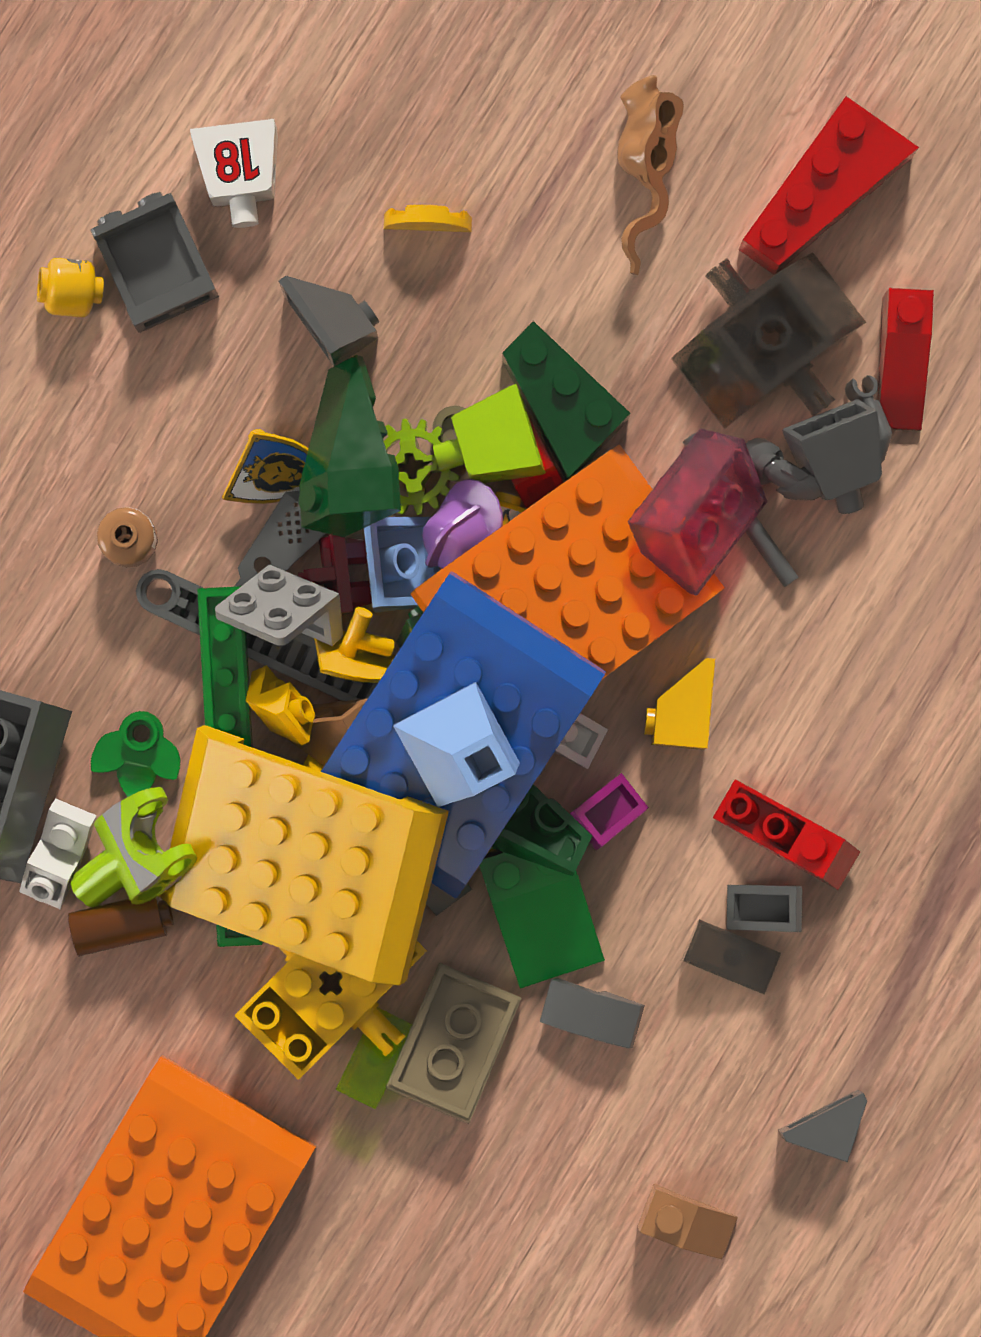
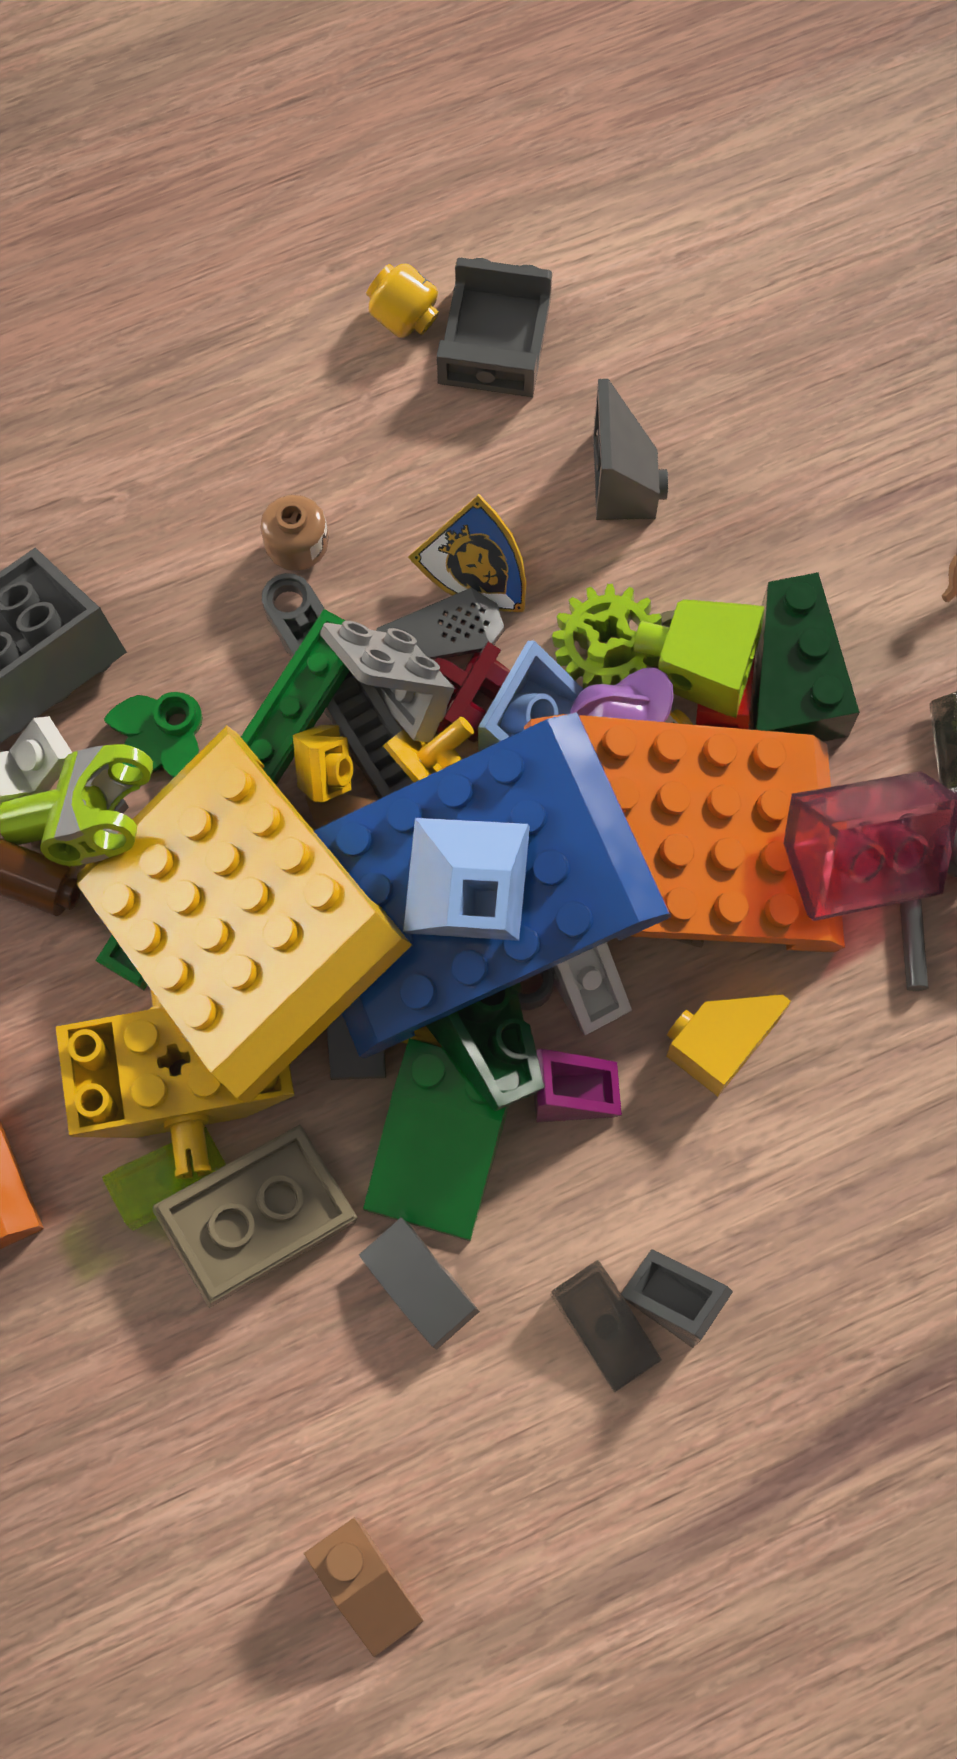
camera: 35 degrees right, 15 degrees down
(238, 166) = (631, 294): white torso -> none
(347, 467) = (547, 588): dark green wedge -> none
(427, 219) = (775, 440): yellow tile -> none
(787, 834) = (752, 1239): red slope -> none
(830, 1128) = (590, 1591): dark grey slope -> none

